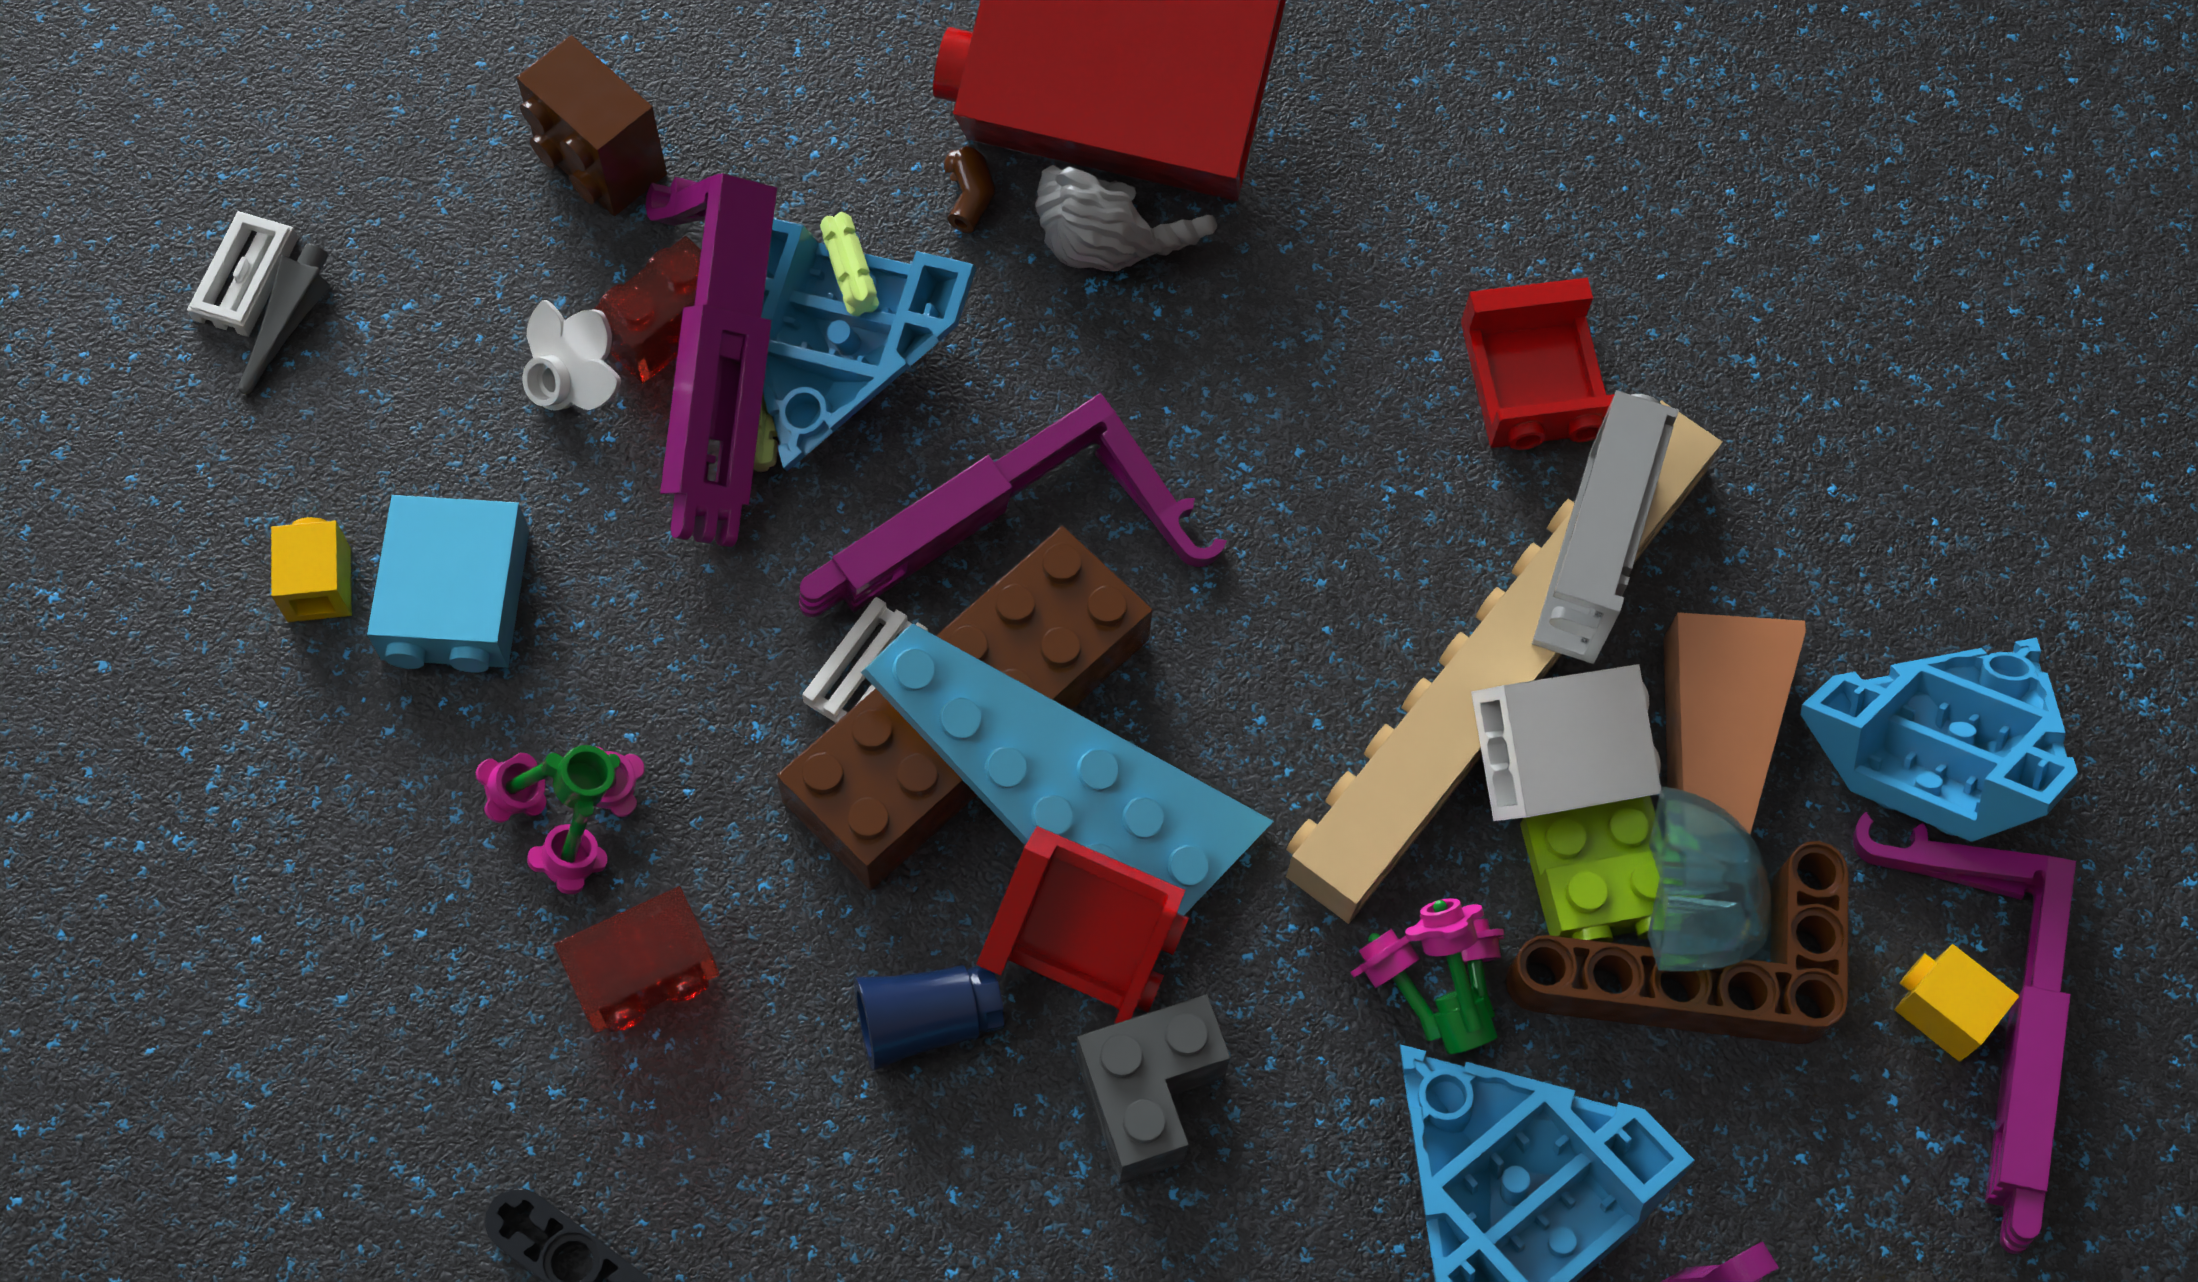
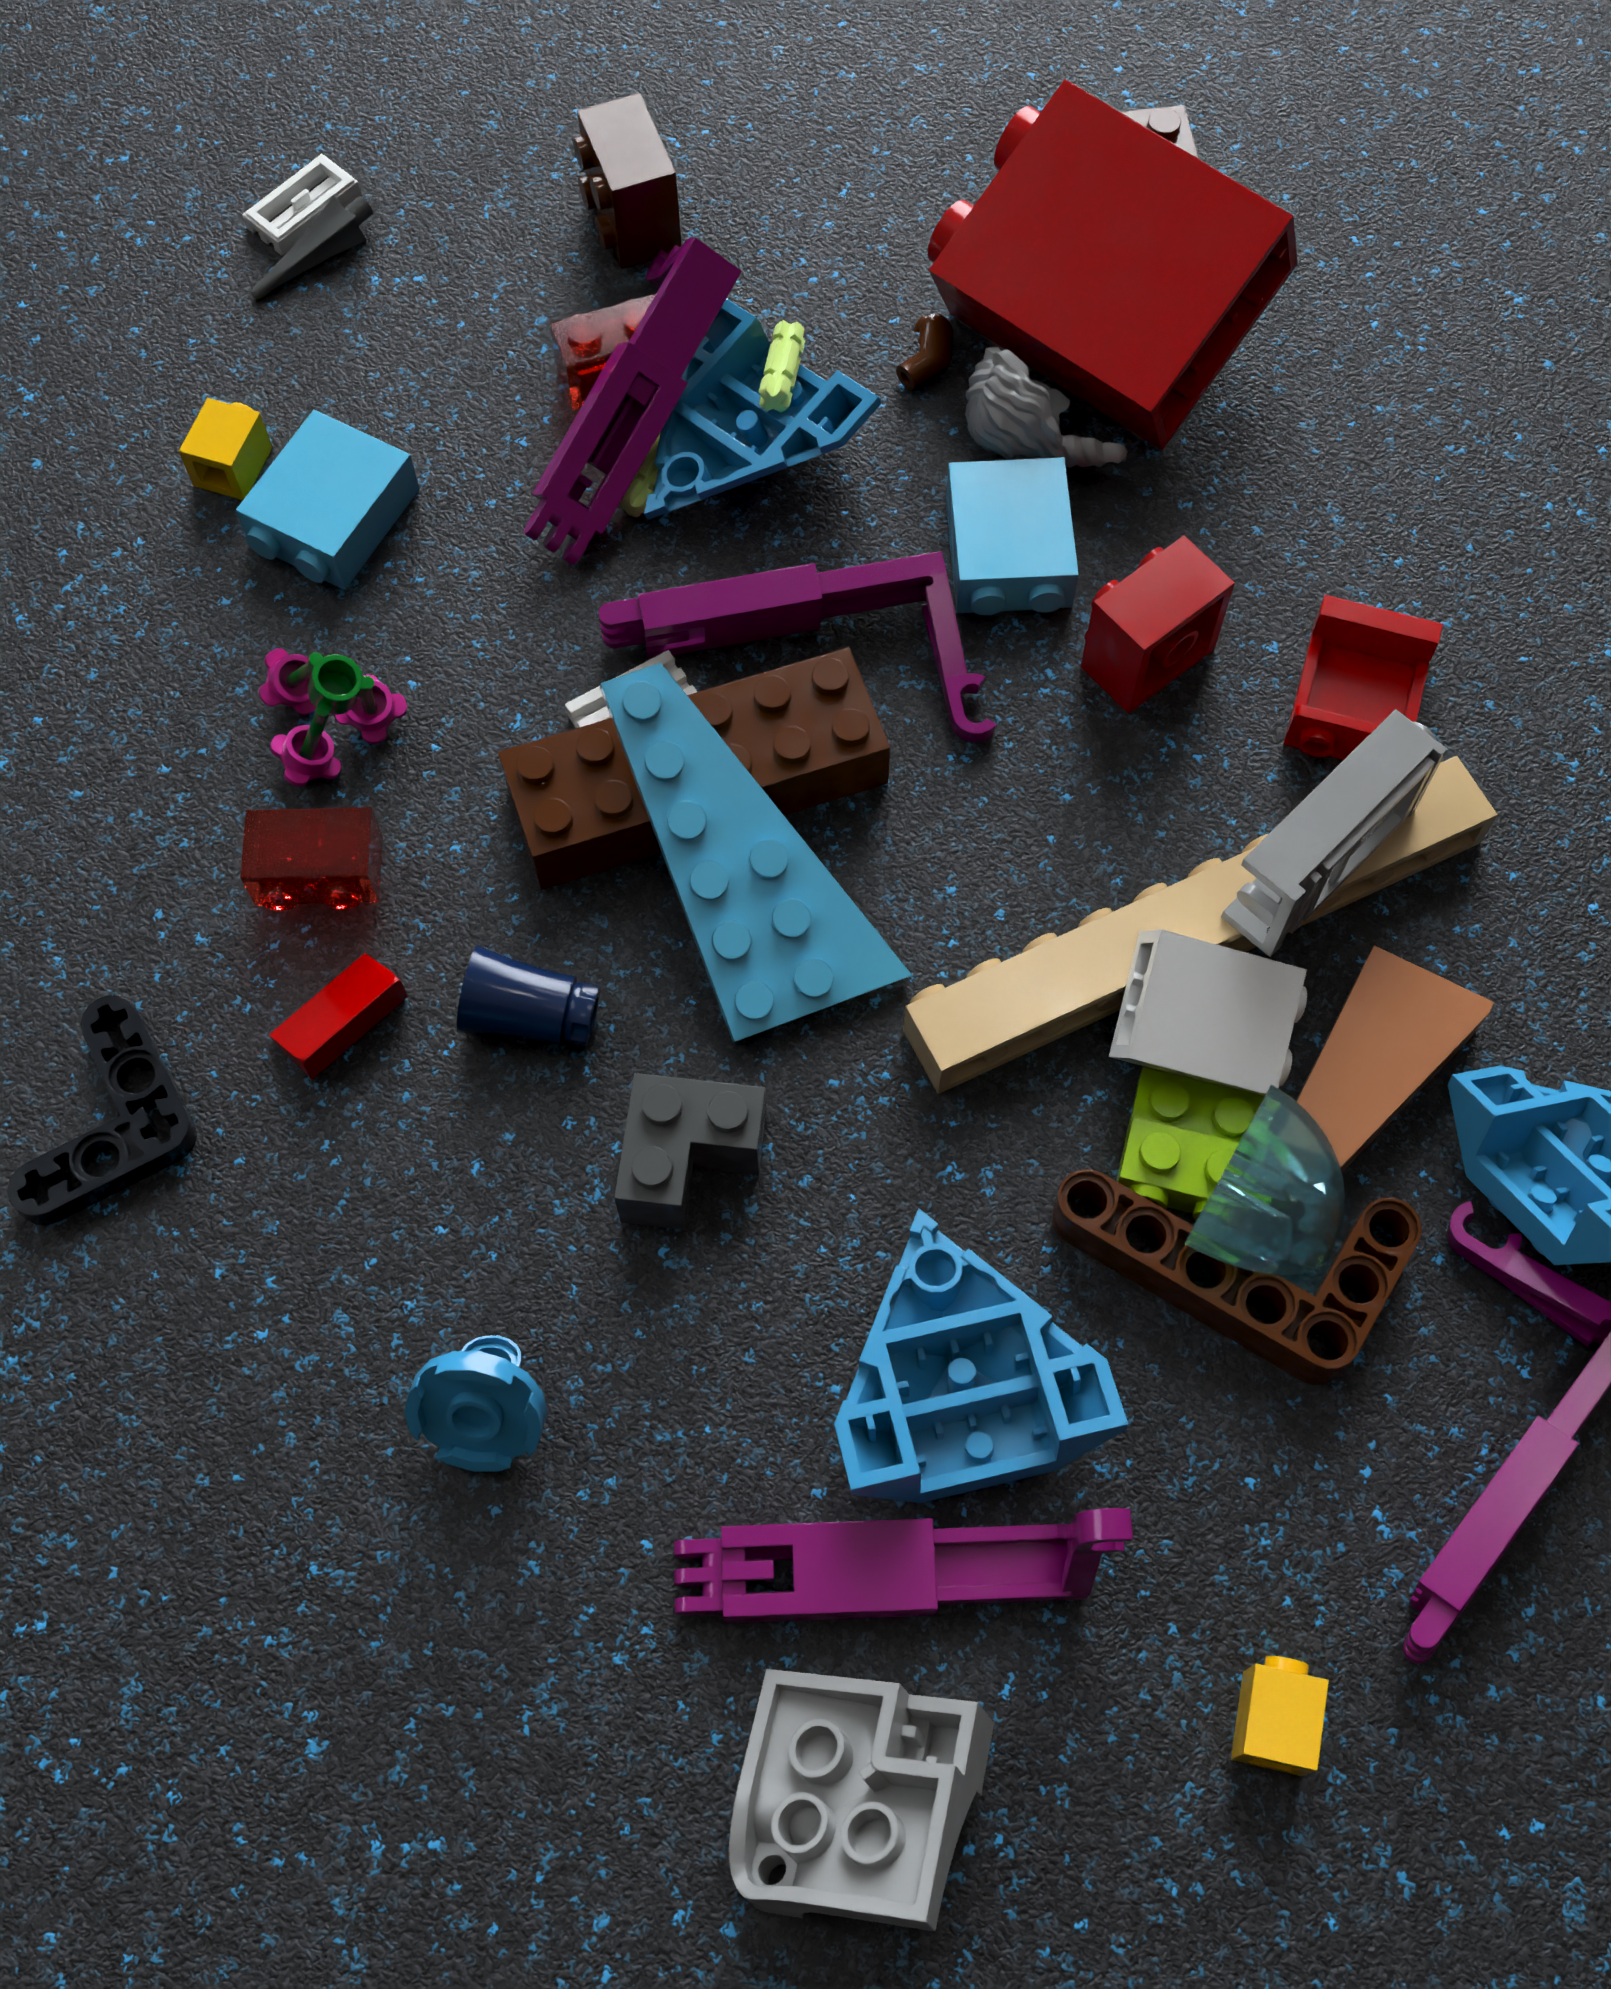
camera: 30 degrees right, 0 degrees up
(569, 359) = (514, 361): white plate -> none
(740, 1106) = (339, 1015): none -> red slope
(1086, 923) = (692, 981): red panel -> none
(1147, 346) = (1011, 535): none -> medium azure brick
(1330, 382) = (1155, 622): none -> red brick
(1464, 939) = (1031, 1152): plant -> none
(1954, 1001) = (1468, 1405): yellow brick -> none

